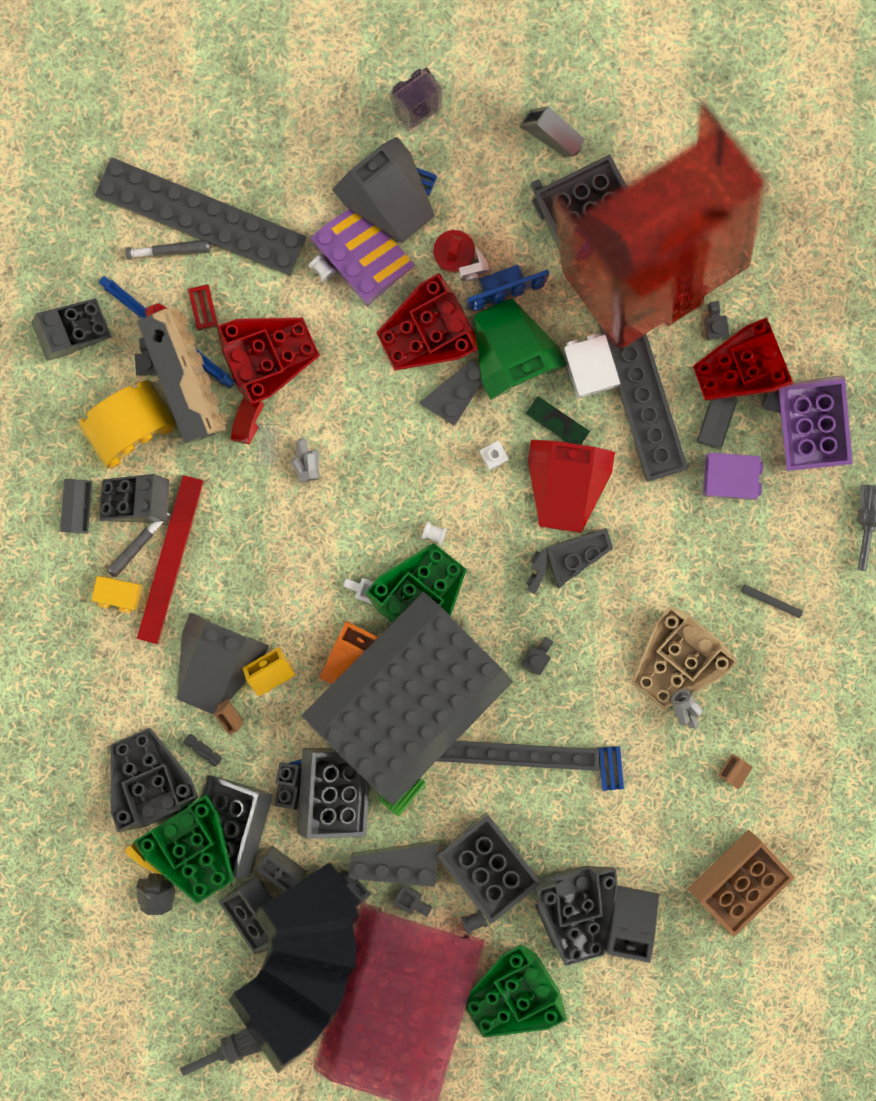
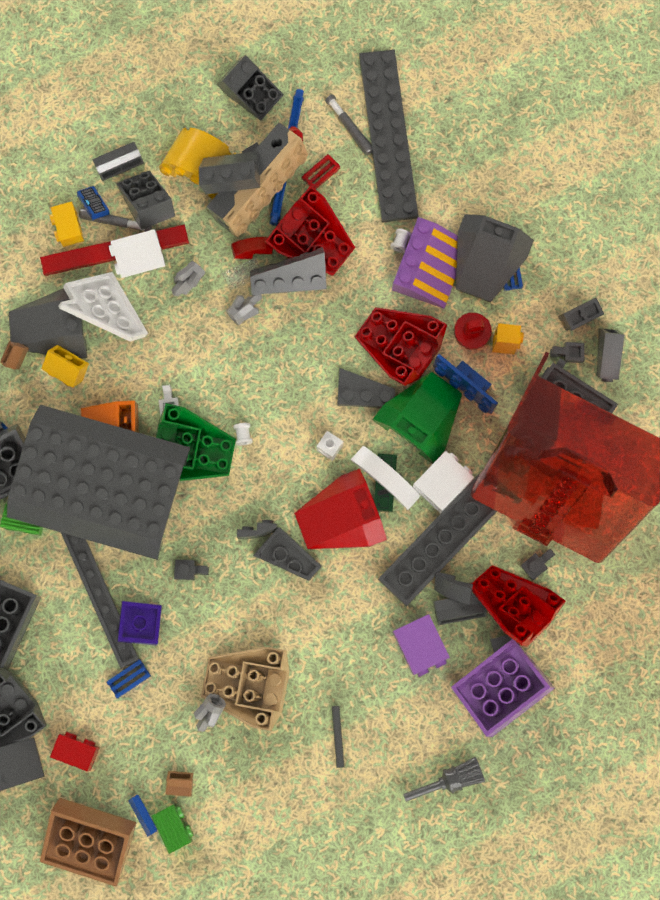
camera: 60 degrees right, 10 degrees down
(108, 555) = (93, 202): none -> tile
(163, 399) = (230, 173): none -> dark grey slope
(191, 538) = (137, 253): none -> white brick
(227, 600) = (104, 304): none -> white wing
(243, 502) = (187, 278): none -> light grey rock
(300, 397) = (291, 275): none -> wedge
(416, 98) = (569, 235): brick -> none
(472, 271) = (463, 351): white plate -> none
(484, 222) = (507, 338): none -> yellow brick
(498, 135) = (581, 314): none -> dark grey hinge
(530, 168) = (571, 352): none -> dark grey plate
(552, 419) = (386, 477): none -> white slope
(565, 730) = (139, 623): none -> dark purple tile
(652, 853) = (74, 751): none -> red brick
(693, 419) = (450, 588): none -> dark grey slope
(746, 820) = (142, 815): none -> blue tile
(771, 798) = (172, 828): none -> bright green brick

